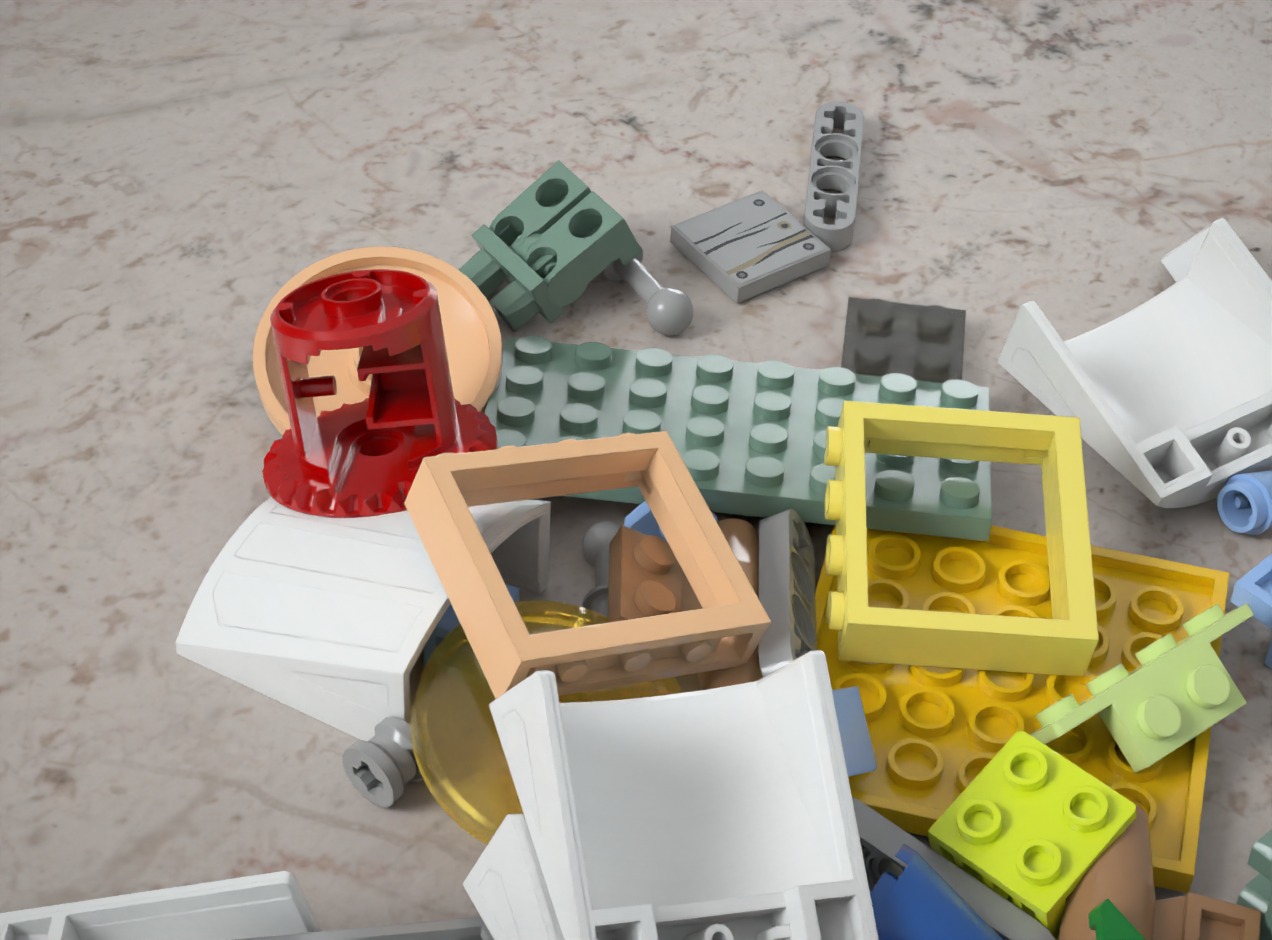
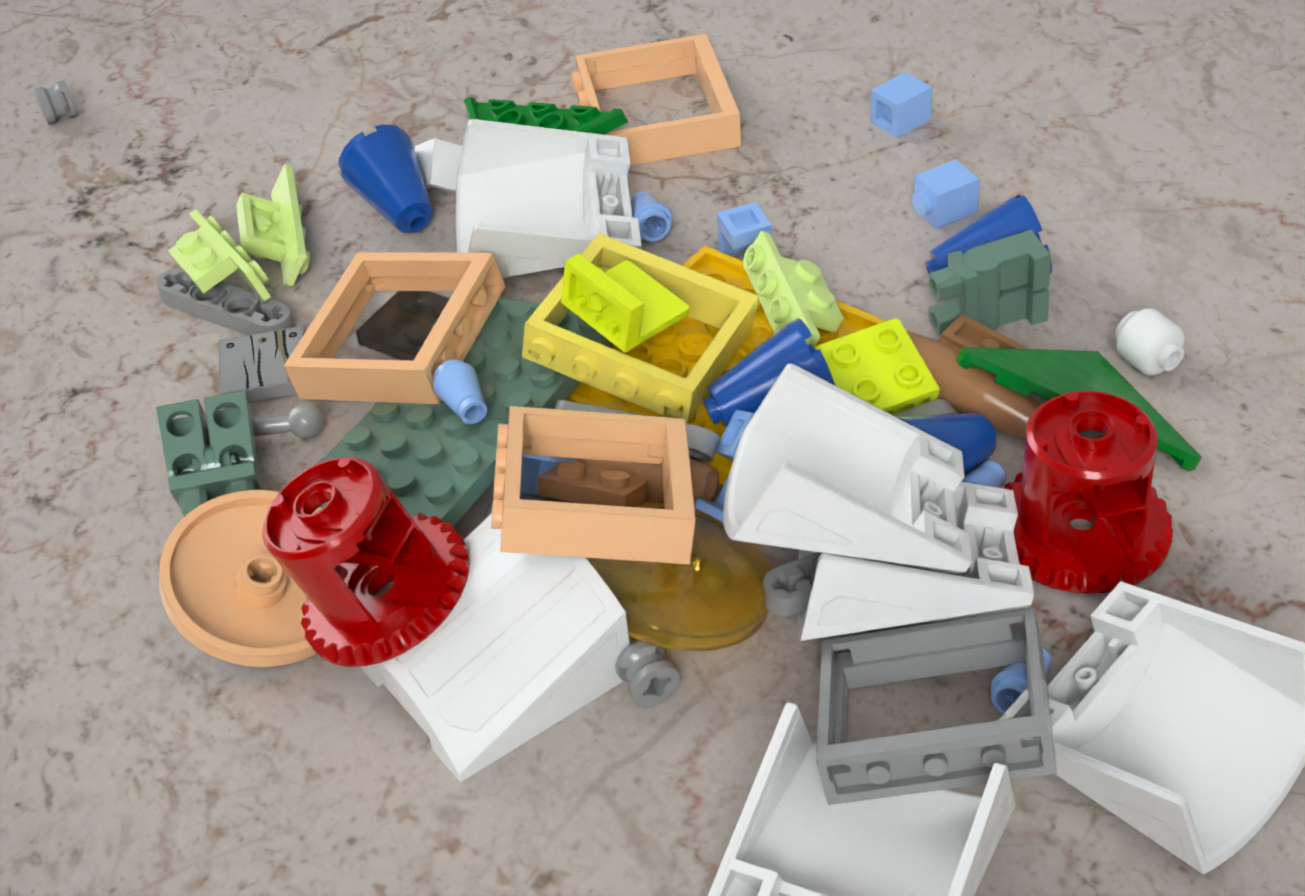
camera: 60 degrees left, 0 degrees up
(739, 404) = (460, 390): none -> light blue cone
(844, 361) = (476, 290): none -> light nougat window
(886, 129) = (213, 255): none -> yellowish green bracket
(938, 480) = (620, 302): none -> neon yellow bracket
(943, 709) = (753, 377): none -> blue cone
(984, 152) = (275, 227): none -> yellowish green bracket
(1136, 216) = (388, 176): none -> blue cone

